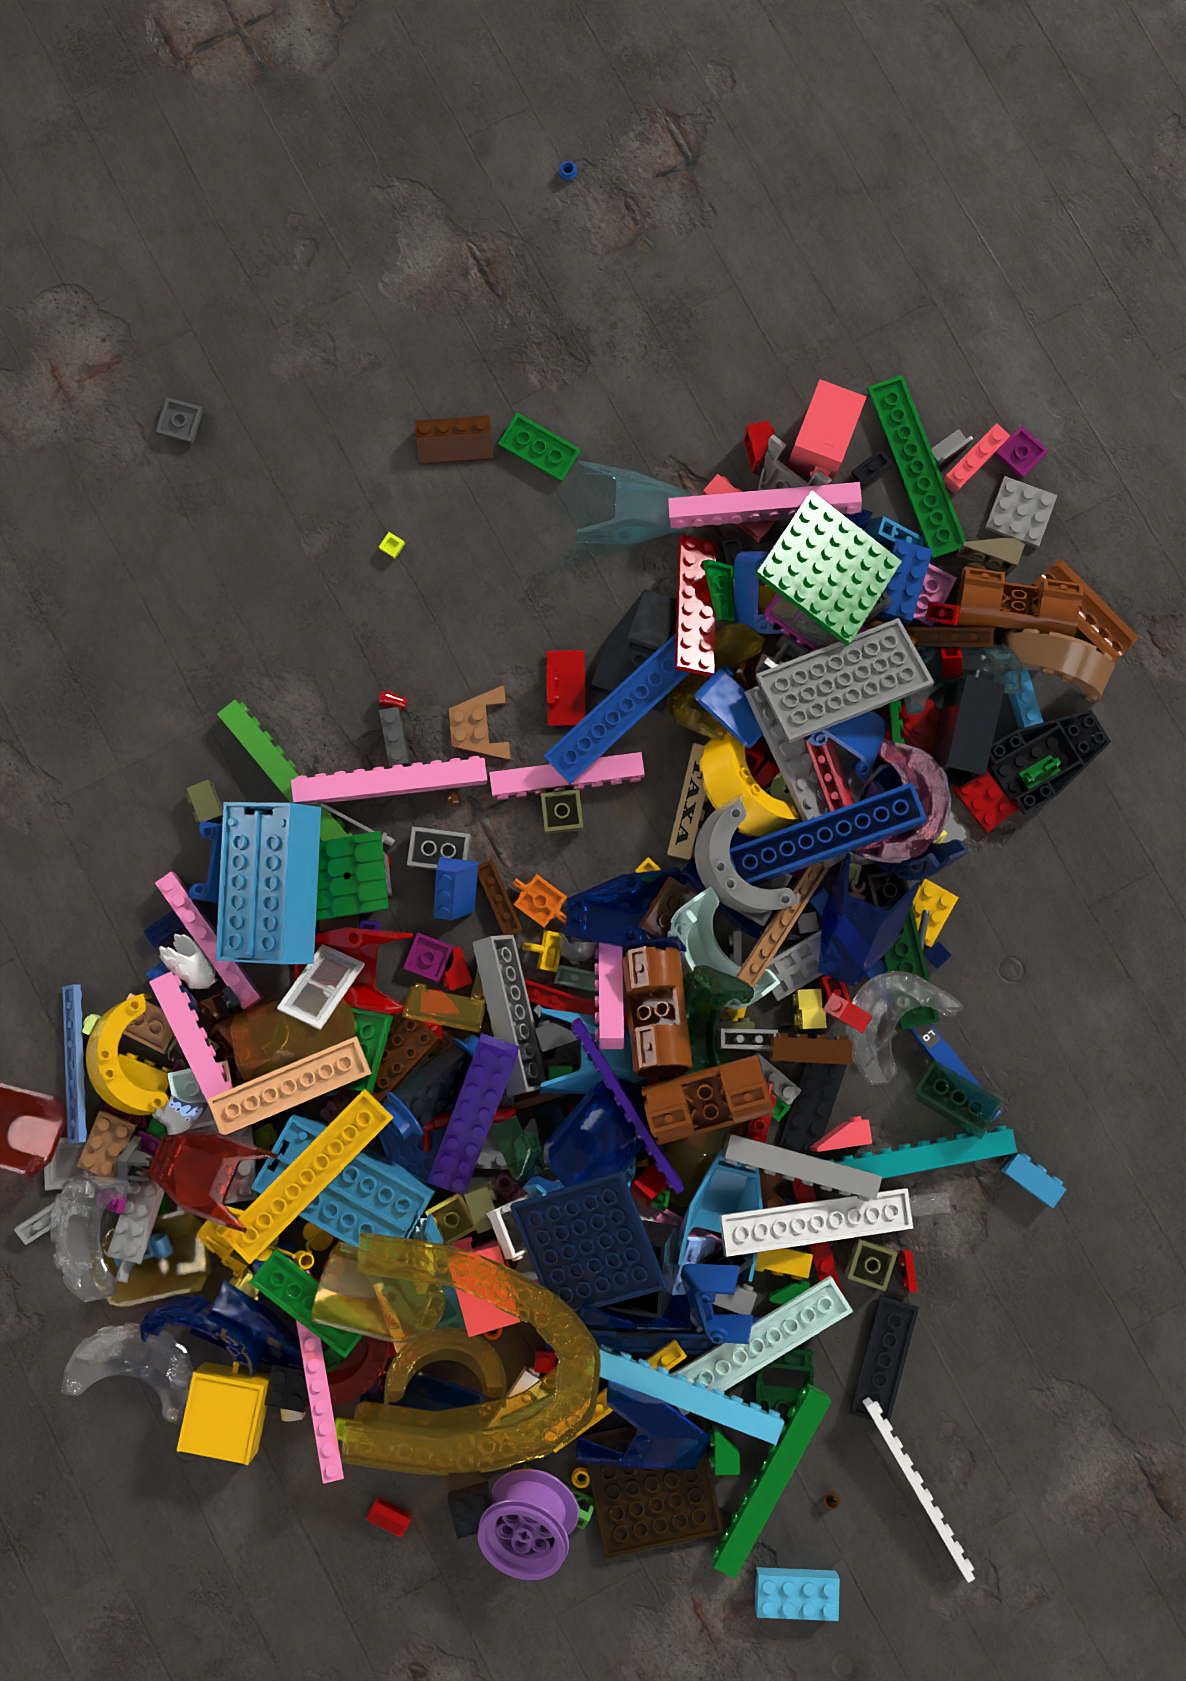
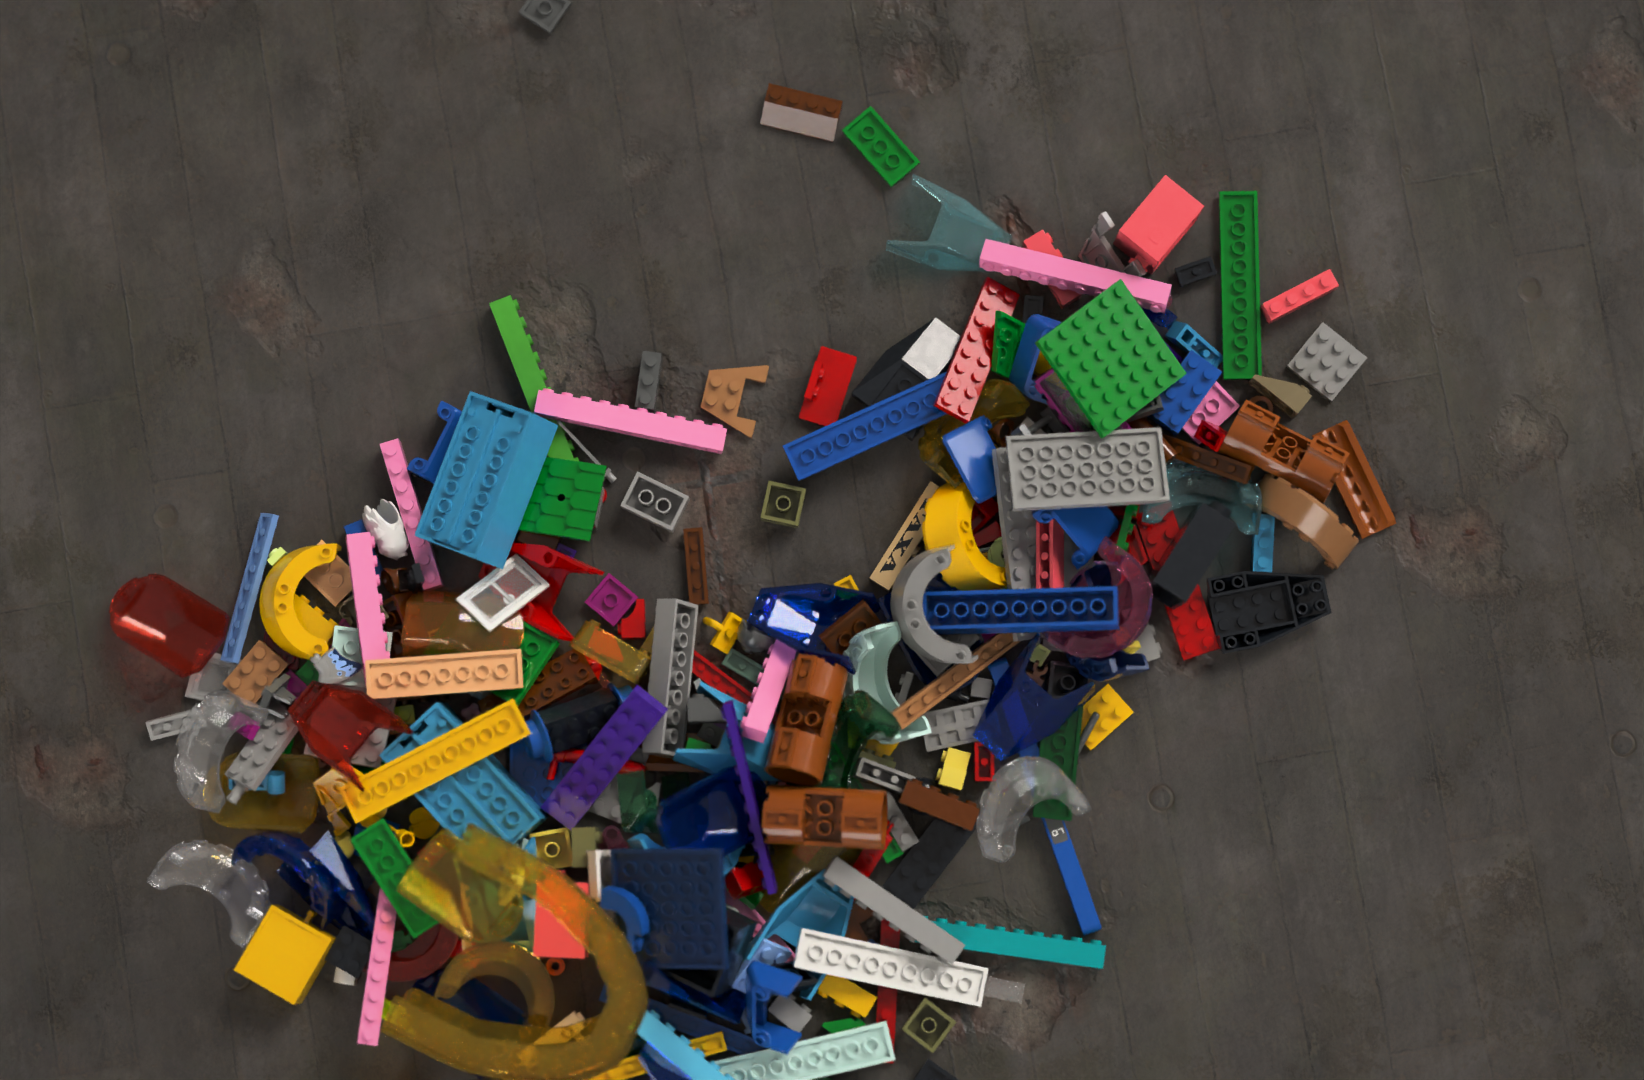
camera: 25 degrees right, 0 degrees up
(164, 928) = (373, 489): clear blue plate -> none
(205, 802) = (450, 383): olive brick -> none
(391, 545) = (707, 195): neon yellow plate -> none
(391, 700) = (657, 344): red cone -> none
(453, 799) = (684, 458): reddish brown hinge -> none
(455, 888) = (658, 543): blue slope -> none
(540, 900) = (734, 581): orange plate -> none
(544, 1360) = (593, 1007): red brick -> none
(545, 777) = (777, 466): bright pink brick -> none
(552, 1261) = (631, 911): none -> blue arch
(756, 442) = (1091, 208): red slope -> none
(847, 1013) = (985, 782): red slope -> none
(847, 1134) = (948, 898): coral slope -> none
(909, 1278) = (960, 1051): red plate -> none
(937, 954) = (1094, 759): clear blue plate -> none
(950, 447) = (1279, 276): light grey panel -> none
(951, 662) = (1203, 485): red brick -> none
(957, 1099) = (1063, 900): clear green slope -> none
(1021, 452) = (1347, 304): magenta plate -> none
(1034, 1179) = (1111, 1000): dark azure brick -> none
(1040, 771) = (1252, 618): green hinge -> none

